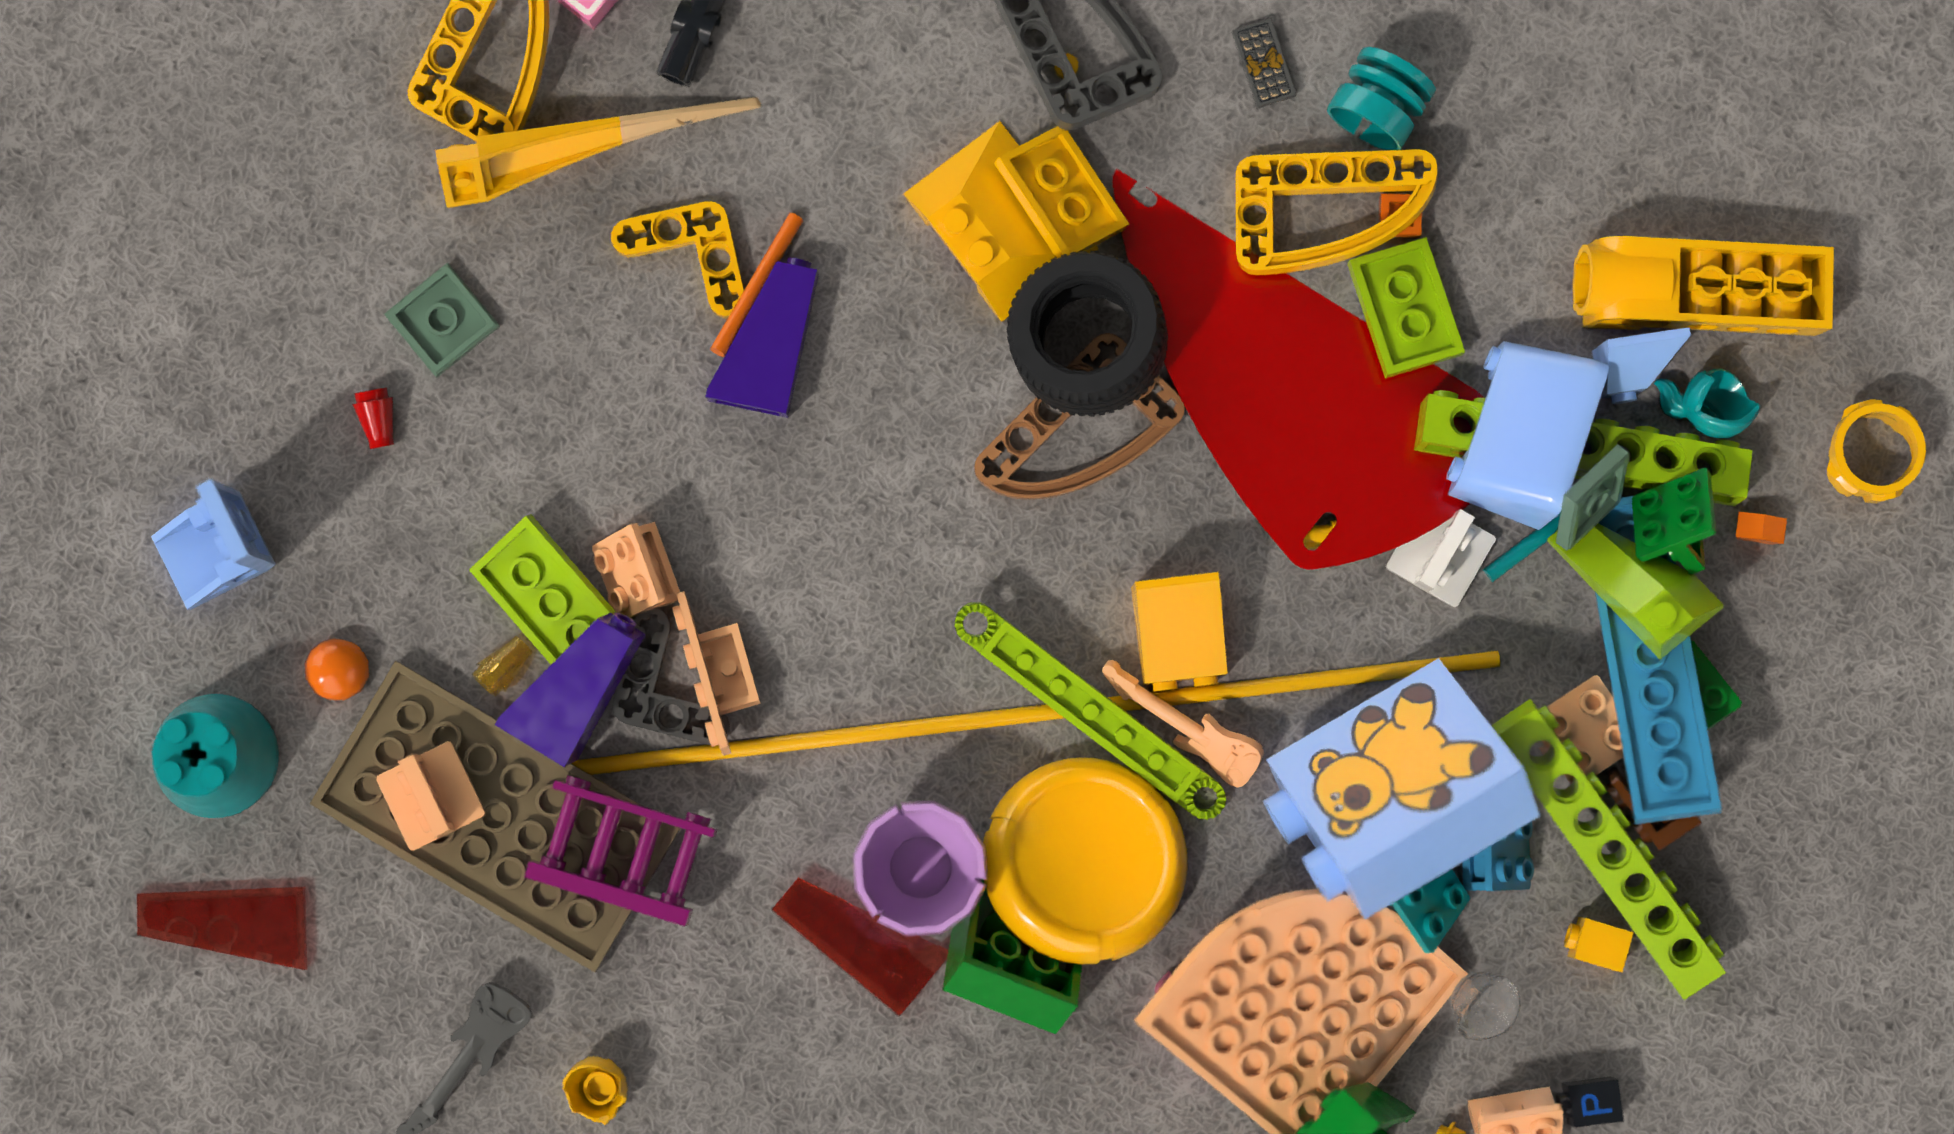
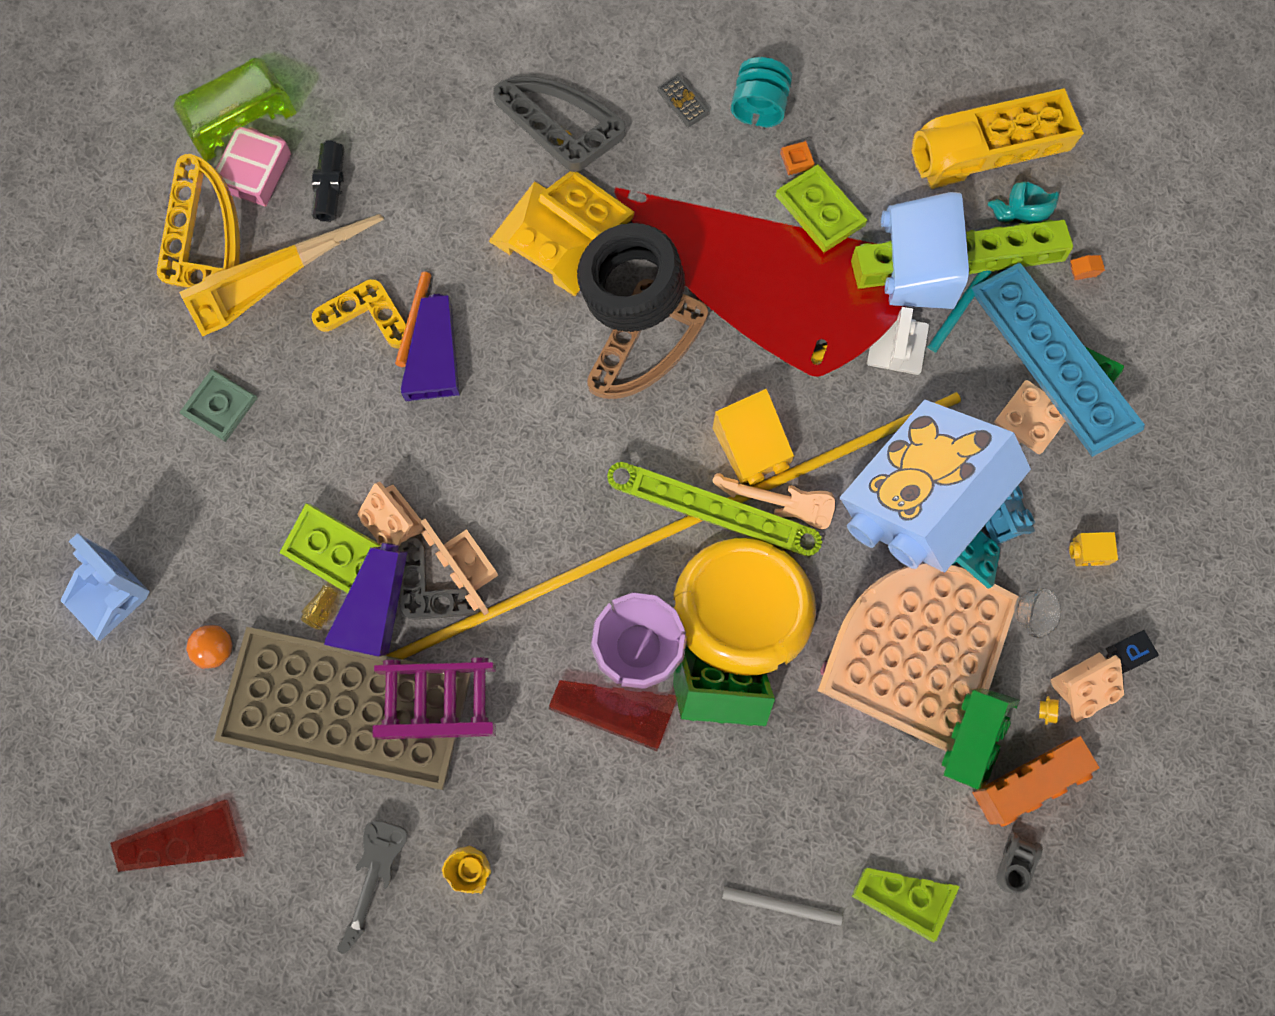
camera: 15 degrees left, 10 degrees down
(238, 760) = (138, 730): teal cone -> none
(376, 416) = (190, 475): red cone -> none
(430, 795) = (293, 706): light nougat bracket -> none
(1316, 183) = (740, 154): yellow beam -> none
(1592, 498) = (981, 271): sand green tile -> none
(1637, 361) = (975, 186): light blue slope -> none
(1650, 596) = (1033, 318): lime wedge -> none
(1660, 832) = (1101, 463): reddish brown bracket -> none
(1675, 520) = (1037, 268): green bracket -> none
(1686, 969) = (1163, 534): lime brick -> none
(1905, 424) = (1142, 178): yellow piece -> none

